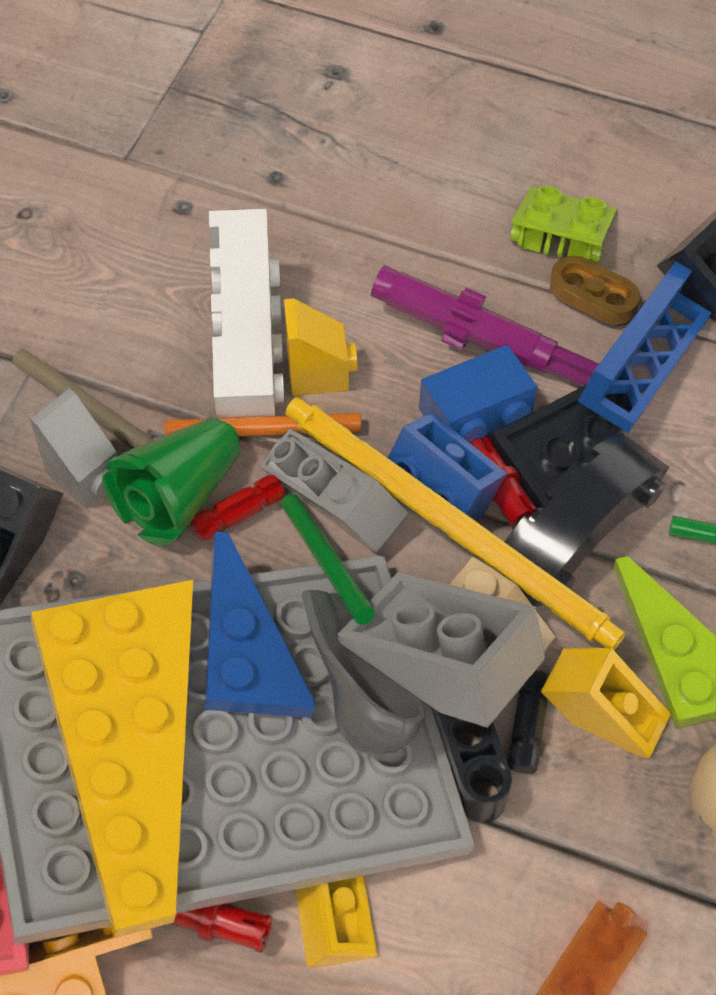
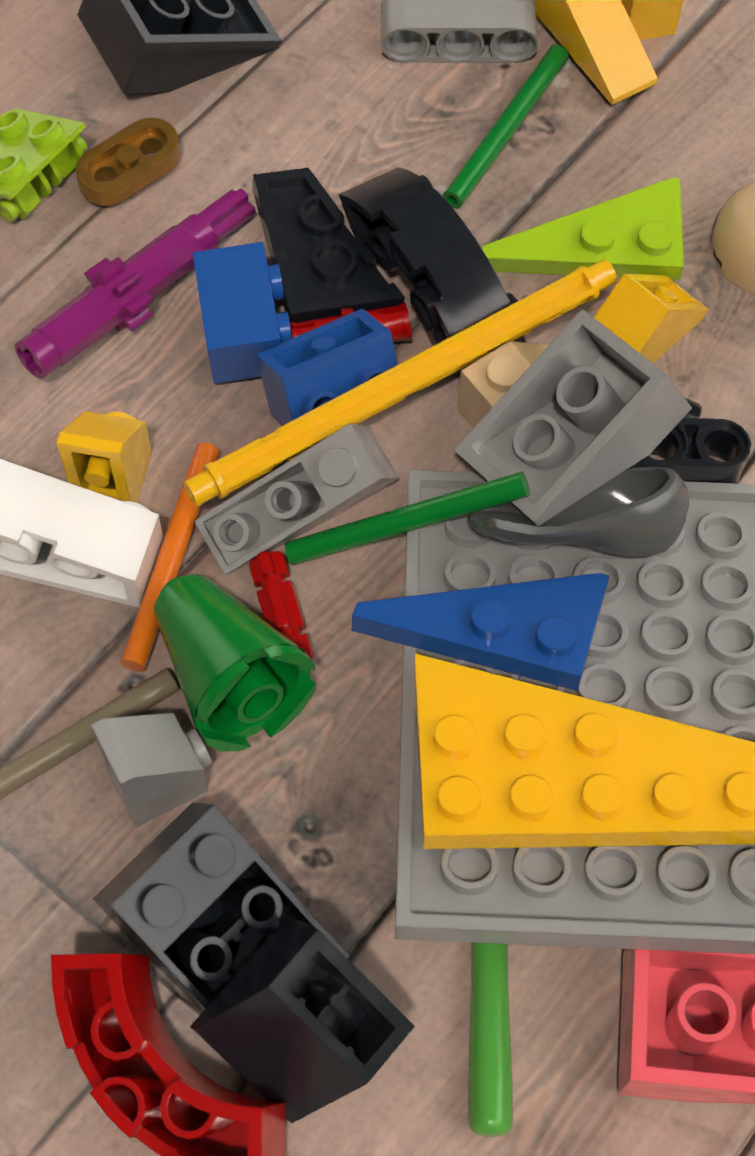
camera: 75 degrees left, 5 degrees up
(637, 337) = (240, 136): blue fence -> none

